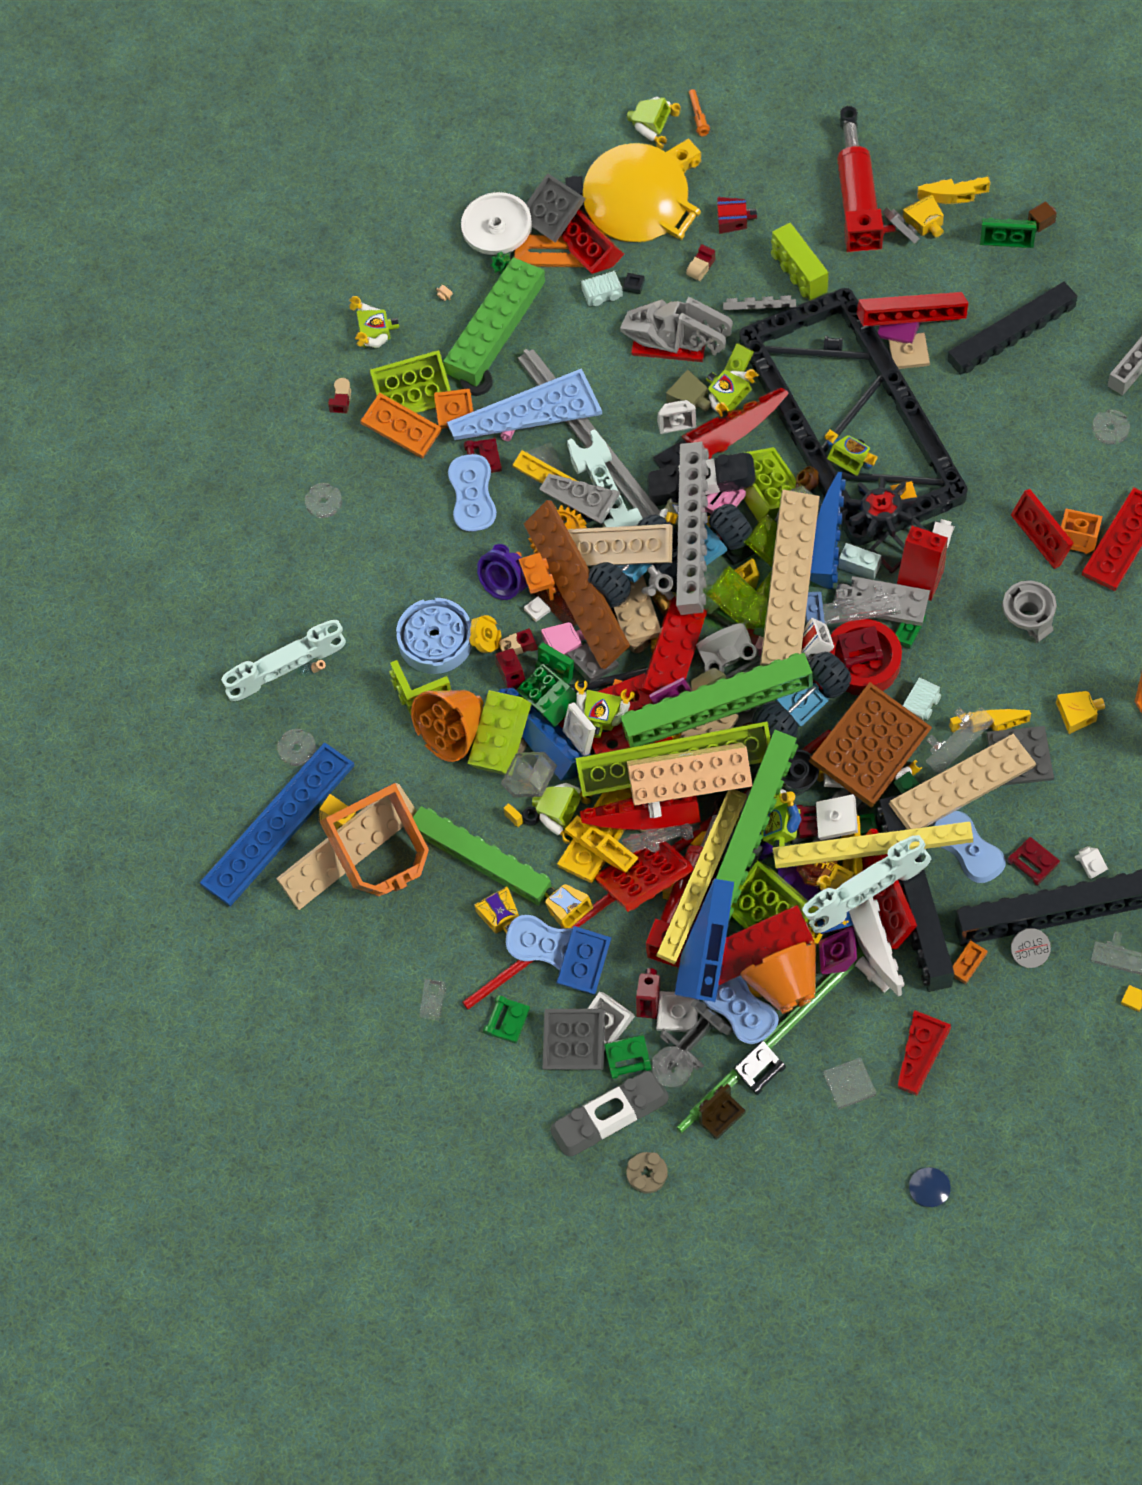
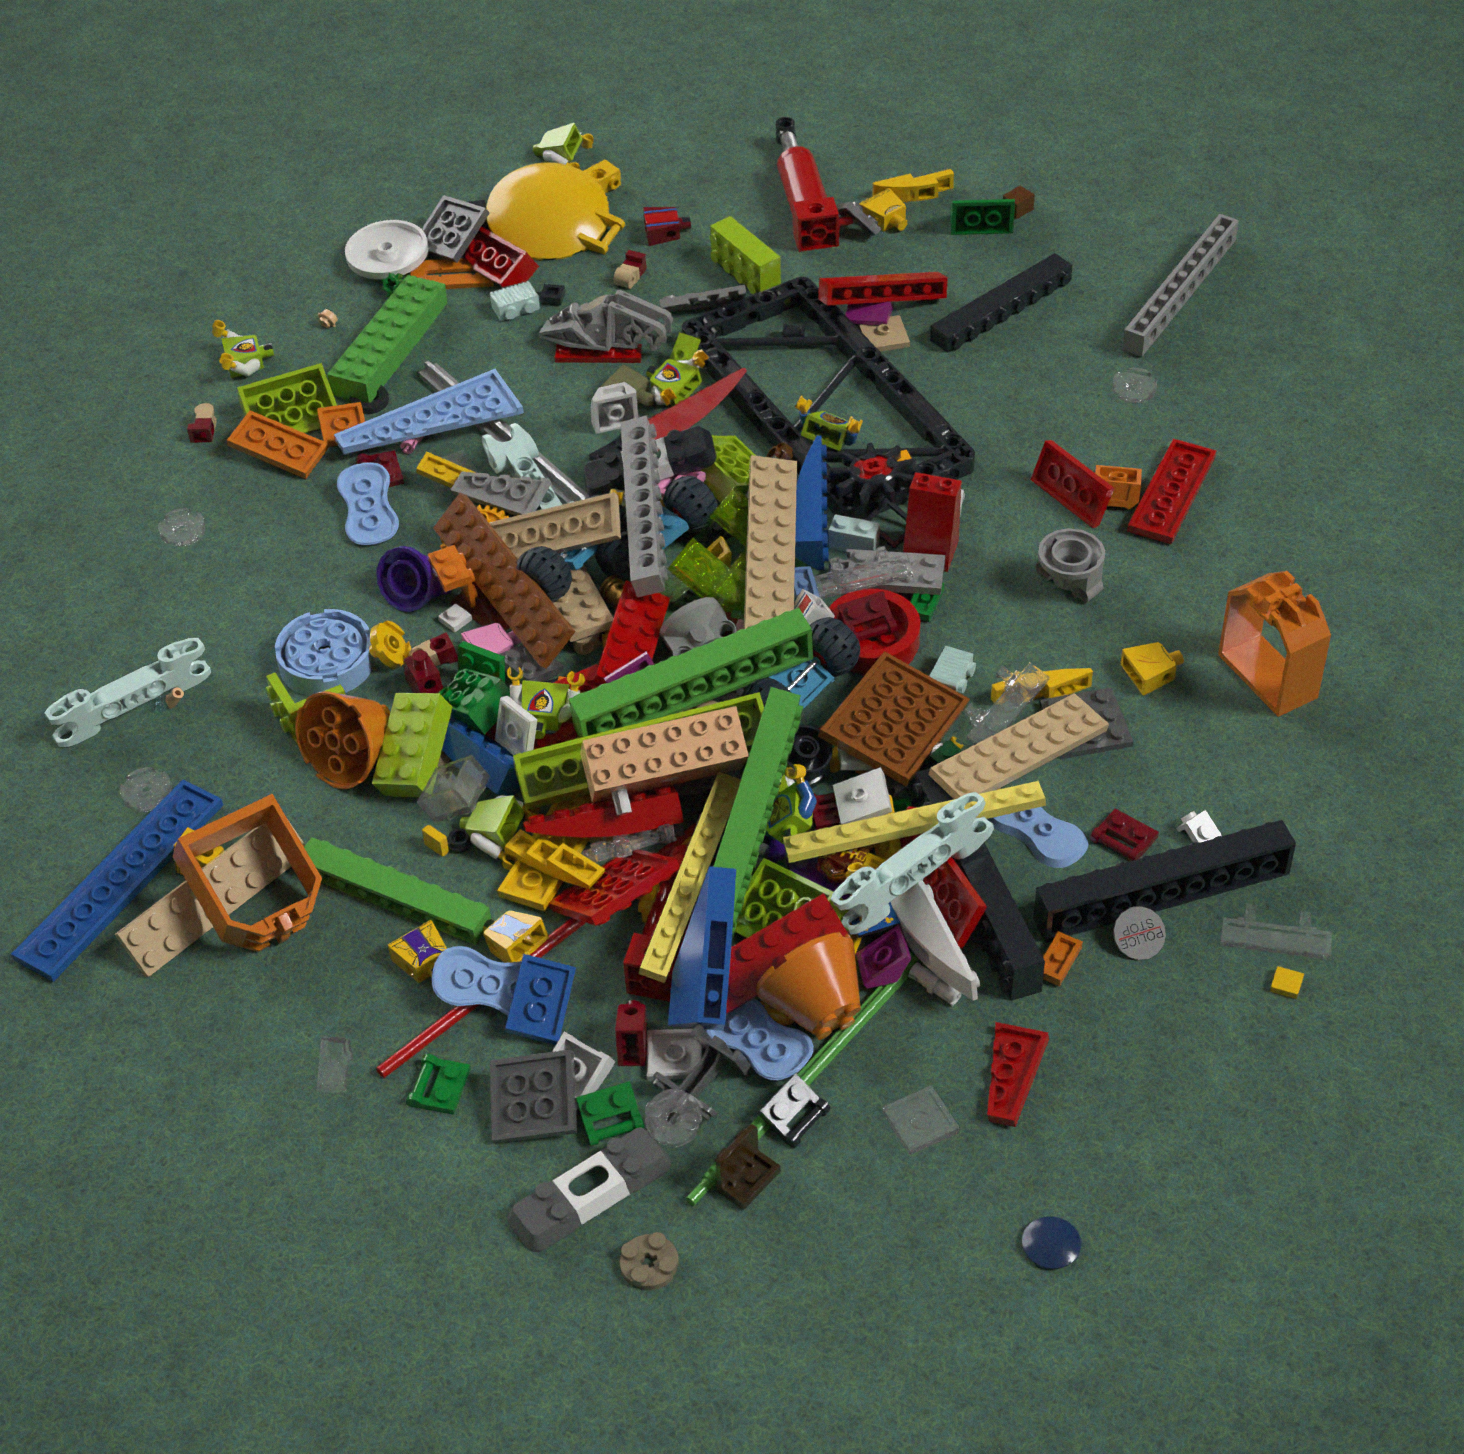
camera: 10 degrees left, 15 degrees down
(654, 578) = (602, 568): light grey pin -> none
(702, 127) = (620, 154): orange pin -> none

